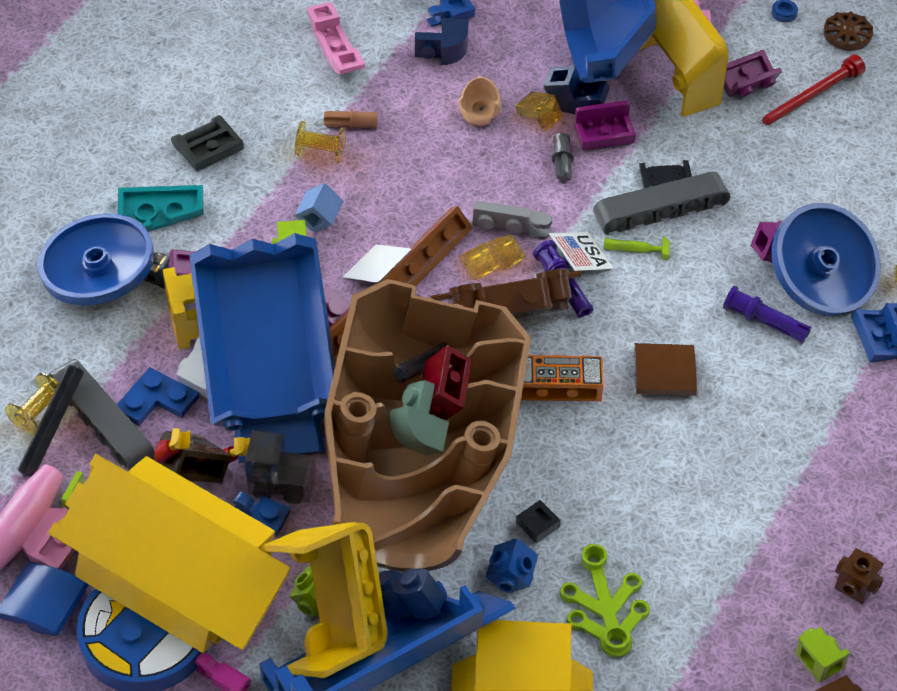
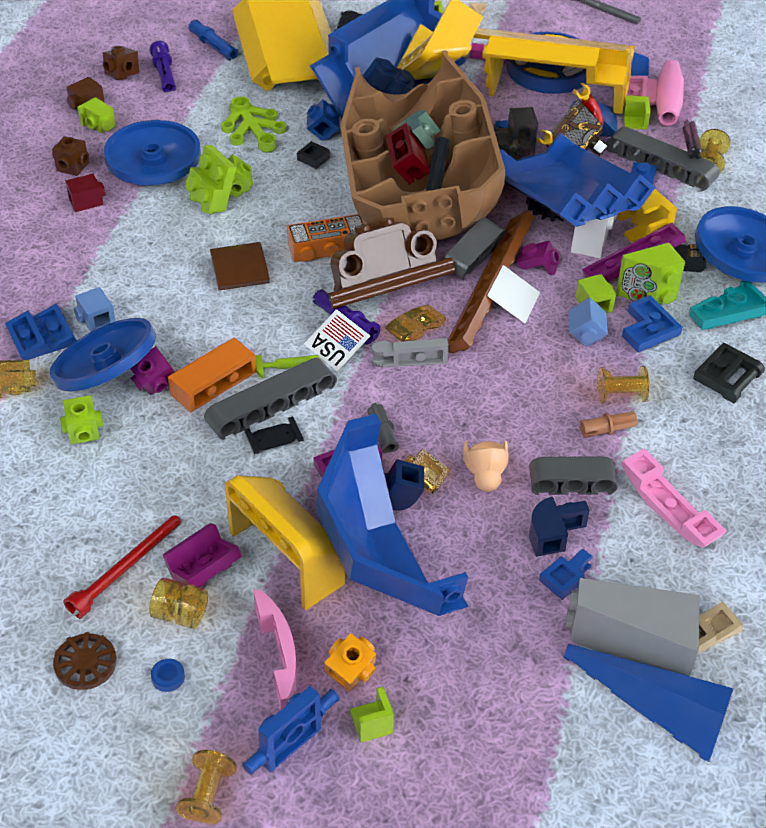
camera: 165 degrees right, 5 degrees down
(226, 224) = (651, 272): none -> lime slope
(249, 199) = (653, 324): none -> blue plate
(409, 76) = (573, 474): none -> dark grey beam
(649, 490) = (243, 177): none -> lime brick
(683, 471) = (211, 181): none -> lime plate
(714, 236) = (212, 374): none -> orange brick
(750, 552) = (152, 152): none -> blue dish
(754, 309) = (167, 322): dark purple pin -> none
(776, 43) = (174, 602): none -> clear yellow wheel
(832, 336) = (94, 309): none -> medium blue brick
(841, 511) = (85, 192): none -> dark red brick
(853, 200) = (81, 420): none -> lime brick

